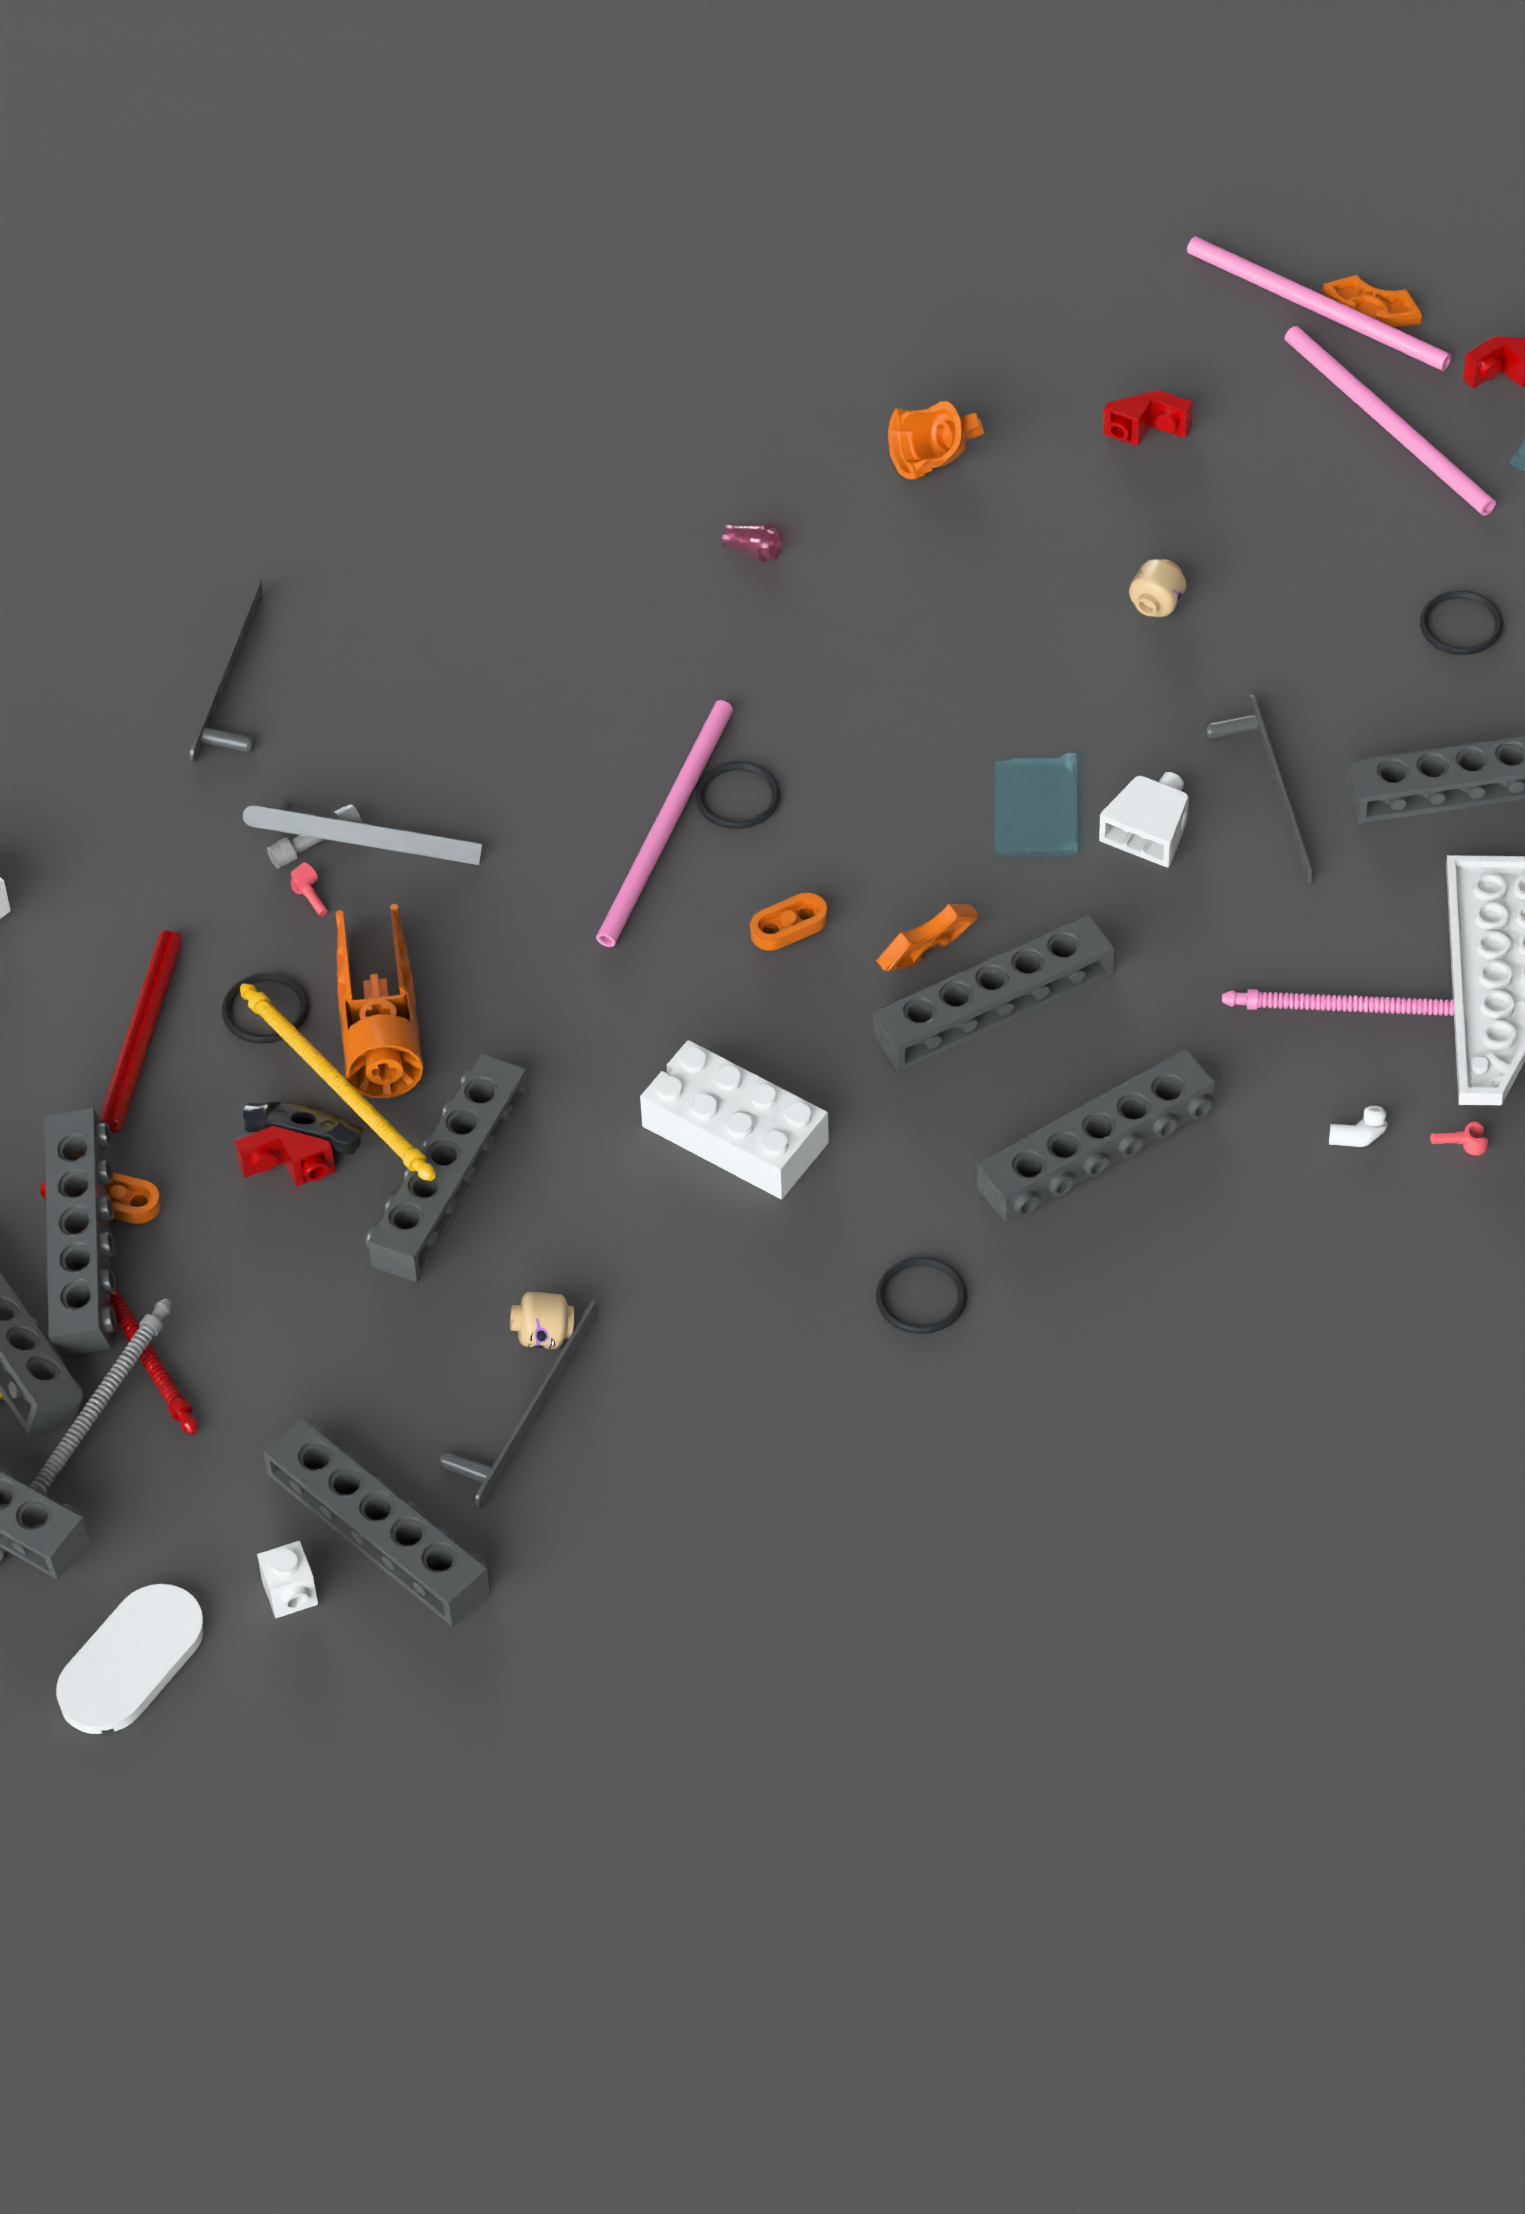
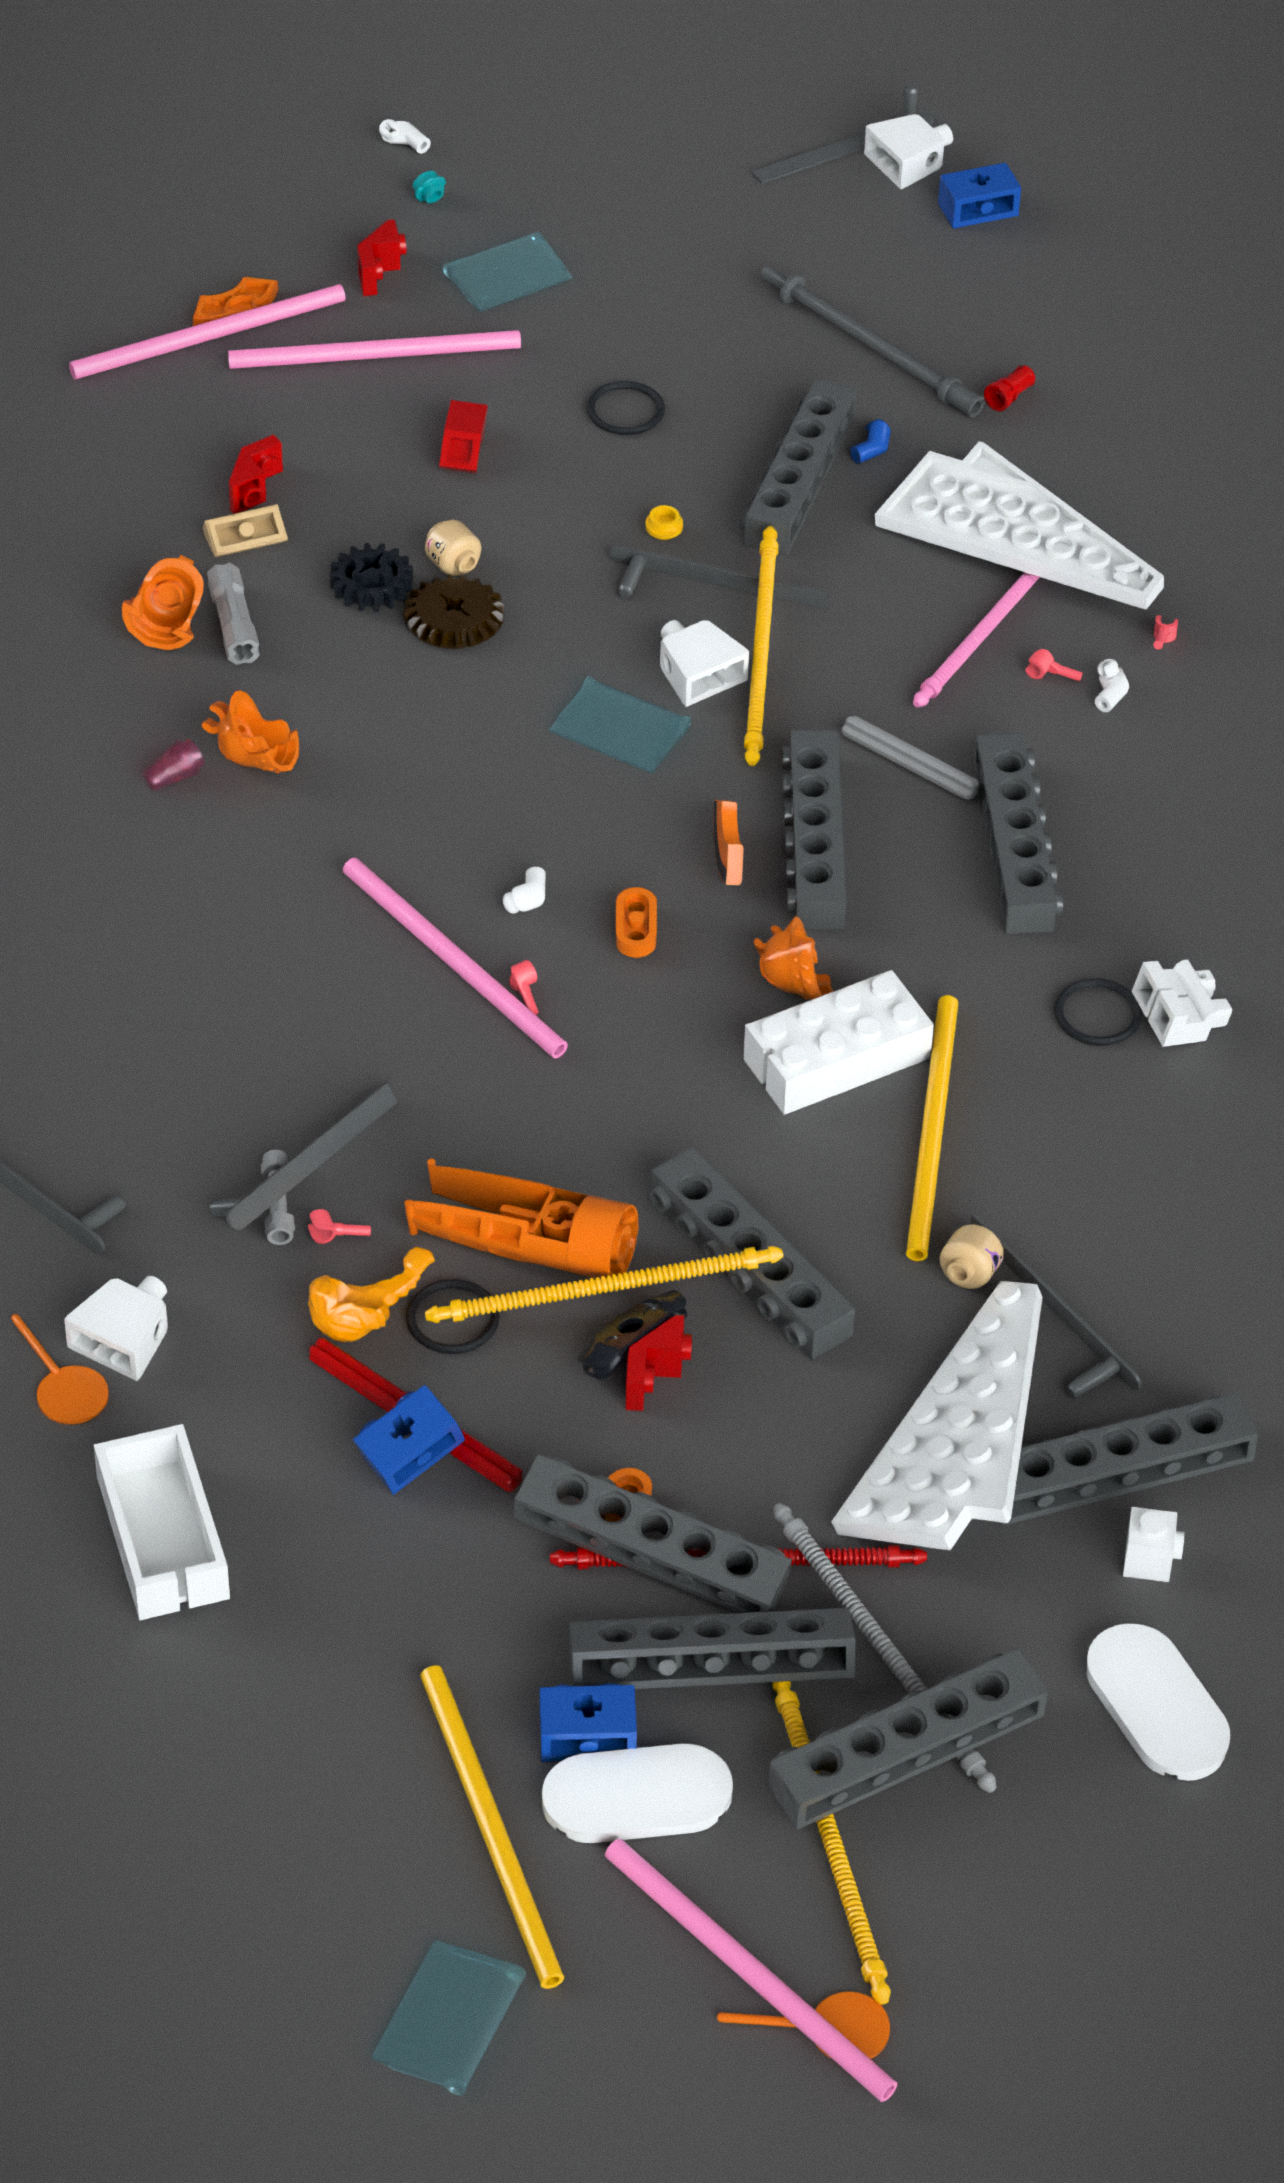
camera: 65 degrees left, 5 degrees down
(44, 813) = (69, 1392): none -> orange piece
(93, 1031) = (402, 1460): none -> blue brick
(113, 805) = (120, 1325): none -> white torso
(216, 933) = (353, 1311): none -> light orange hair
(293, 1393) = (961, 1437): none -> white wing
(669, 875) = (521, 977): none -> coral hand
(691, 1232) = (932, 1129): none -> yellow piece
(737, 766) = (495, 899): black tyre -> none
(775, 838) = (528, 895): none -> white arm
(806, 1048) = (789, 962): none -> orange helmet
(814, 571) = (251, 739): none -> orange helmet
(944, 503) = (228, 596): none -> light grey axle
(956, 1342) = (1179, 1002): none -> white hips
(1079, 553) = (371, 577): none -> black gear
(1080, 449) = (245, 531): none -> tan slope
(1083, 903) = (753, 739): none -> yellow hose
(1106, 643) = (476, 622): none -> dark brown gear
(1145, 1015) = (910, 757): none -> light grey axle
(1318, 716) = (664, 522): none -> yellow plate
(1324, 520) = (463, 436): none -> red slope
(1347, 1065) = (1043, 662): none -> coral hand

